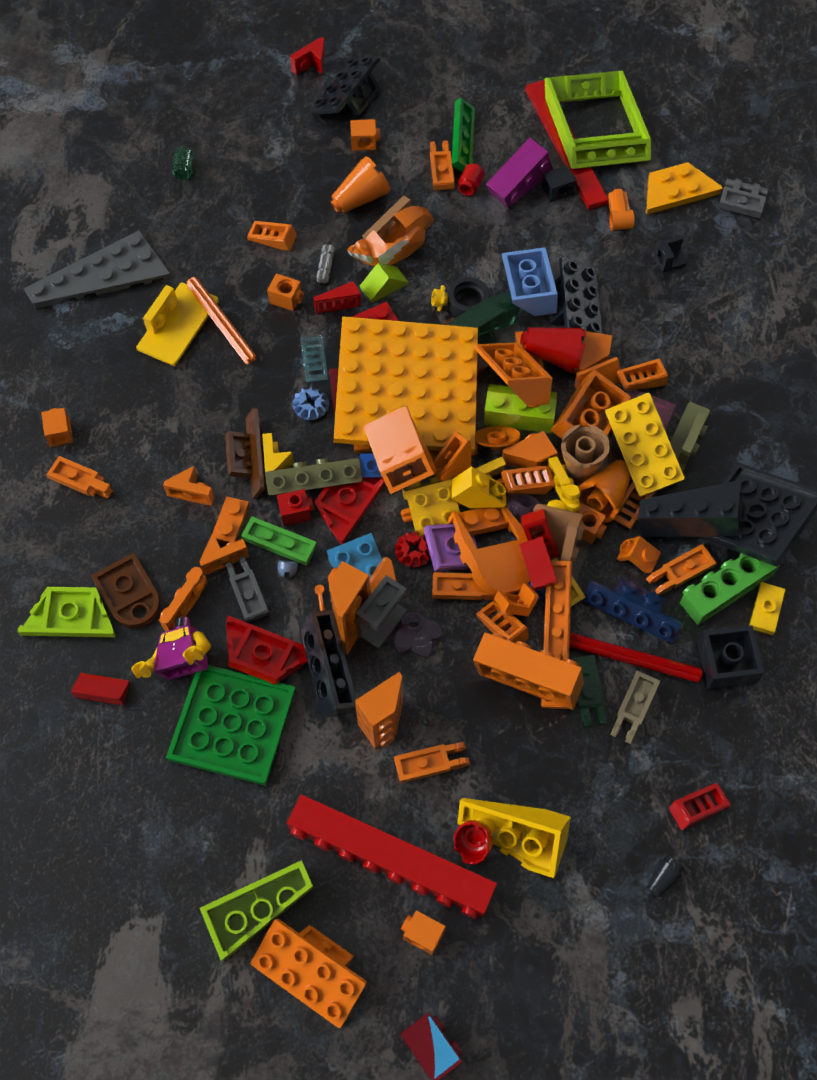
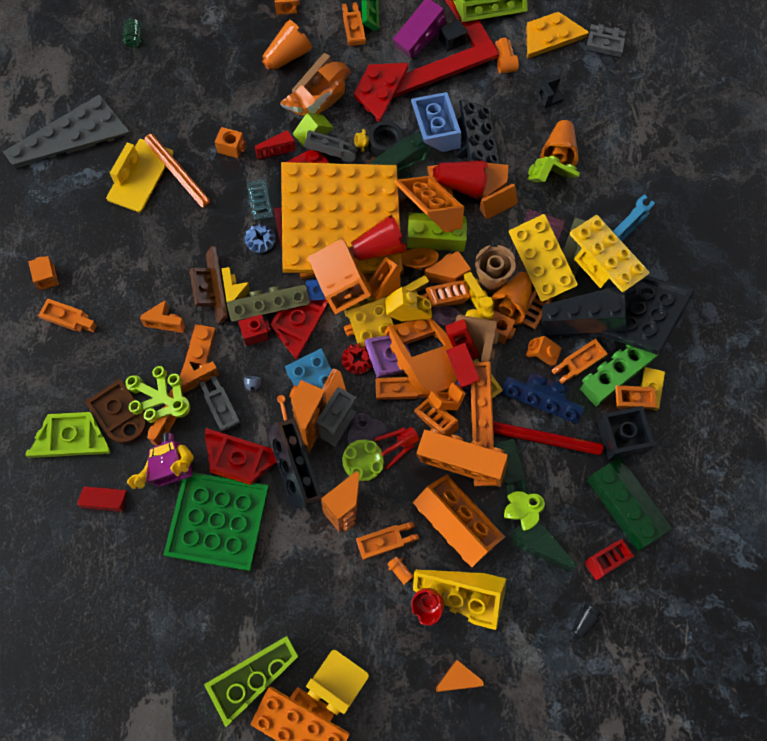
camera: 10 degrees left, 5 degrees up
(197, 587) = (136, 385): none -> lime plant
(279, 540) = (243, 359): bright green plate -> none
(283, 241) = (225, 96): orange slope -> none
(325, 264) = (262, 114): light grey axle -> none
(357, 923) = (337, 682): none -> yellow bracket
(391, 856) = (360, 623): red brick -> none
(402, 302) = (330, 146): none -> dark grey hinge
(413, 663) = (364, 458): none -> lime dish
(422, 932) = (392, 685): orange brick -> none
(444, 798) = (400, 570): none -> orange pin
(449, 412) = (379, 241): none -> red cone
(463, 645) = (406, 439): none -> red plant
(466, 237) = (379, 87): none -> red wing
(471, 179) = (379, 35): red brick -> none
(504, 931) = (458, 678): none -> orange slope
(519, 744) = (458, 520): none -> orange slope
(526, 226) = (447, 67): none -> red tile
(589, 404) = (494, 227): orange brick -> none
(595, 736) = (522, 509): none -> lime plate
(614, 778) = (542, 545): none -> clear green slope
(636, 703) = (552, 476): dark tan hinge -> none
(649, 344) = (539, 171): none -> lime bracket
(654, 366) = (544, 189): orange slope -> none
(677, 319) = (562, 143): none -> orange cone
(720, 446) = (606, 256): none -> yellow bracket
(729, 742) = (629, 504): none -> dark green slope
(745, 614) = (634, 396): none -> orange slope
(746, 418) = (636, 218): none -> dark azure tile

